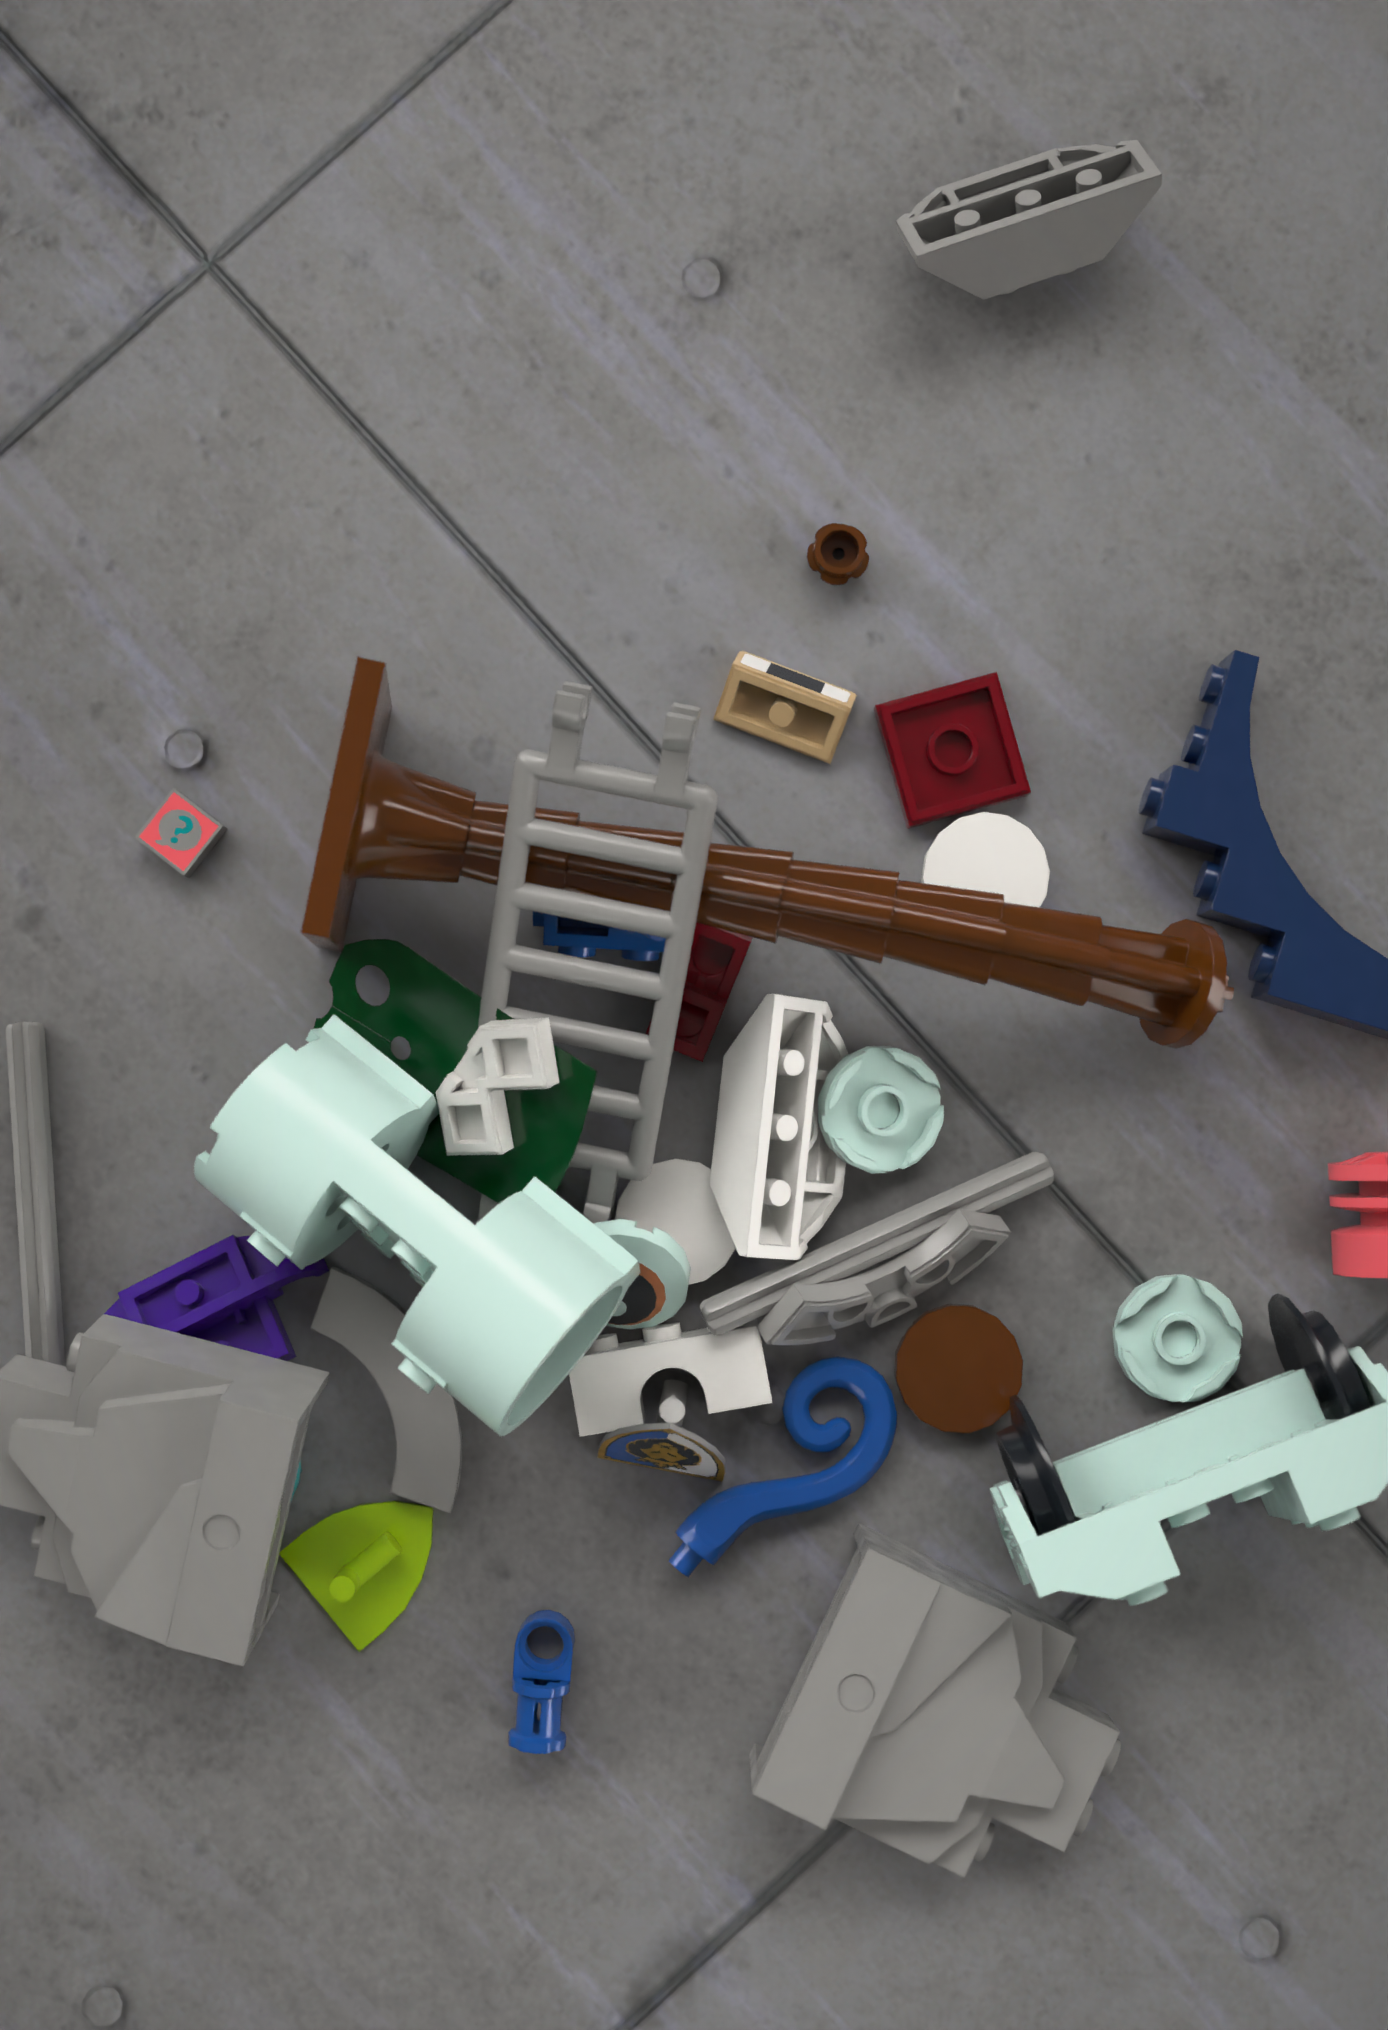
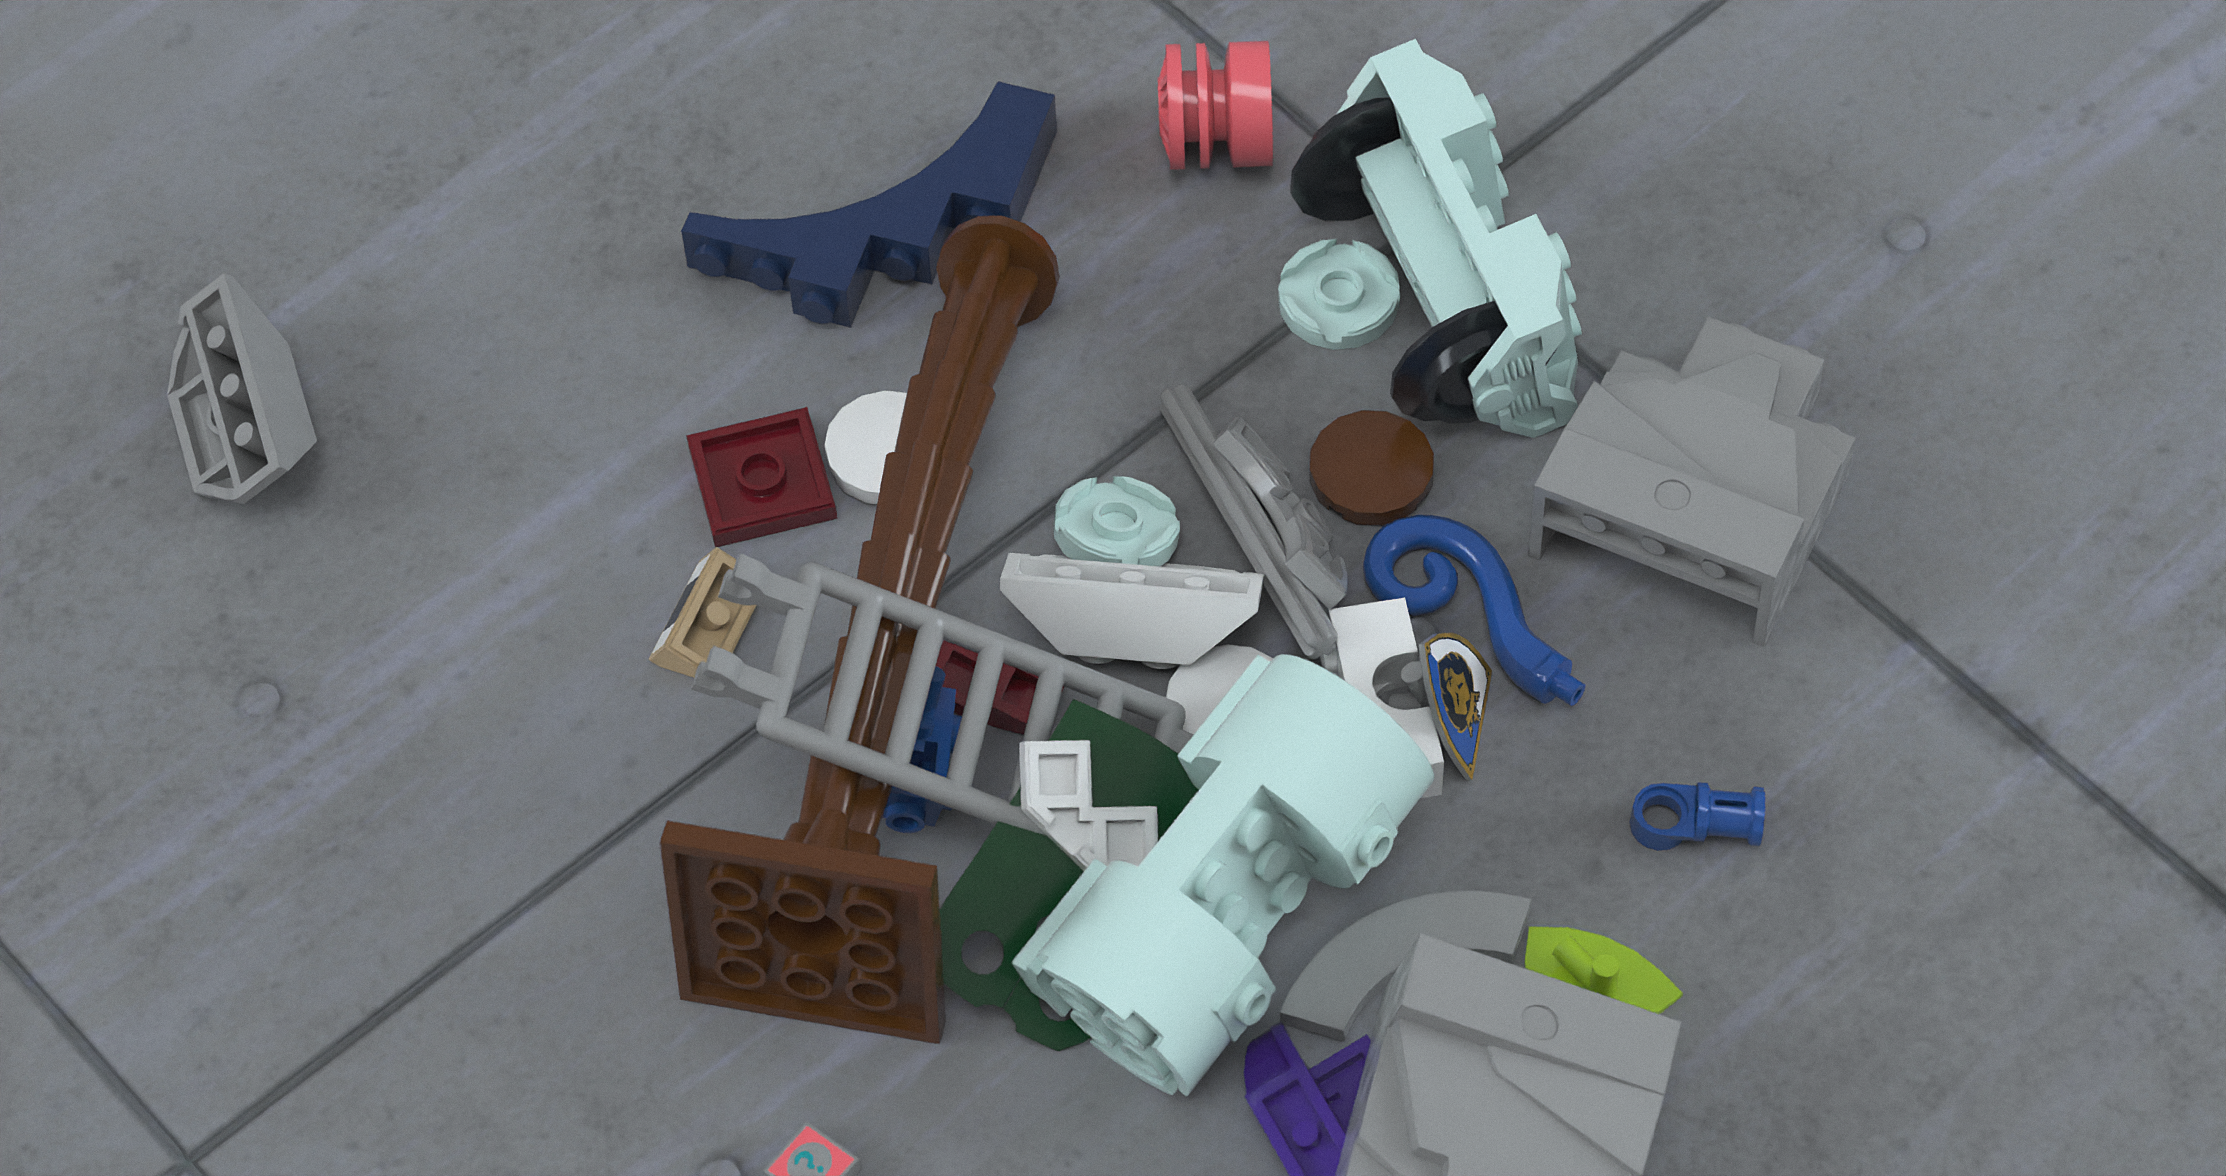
camera: 90 degrees left, 30 degrees down
(840, 537) = (556, 555): reddish brown plate -> none

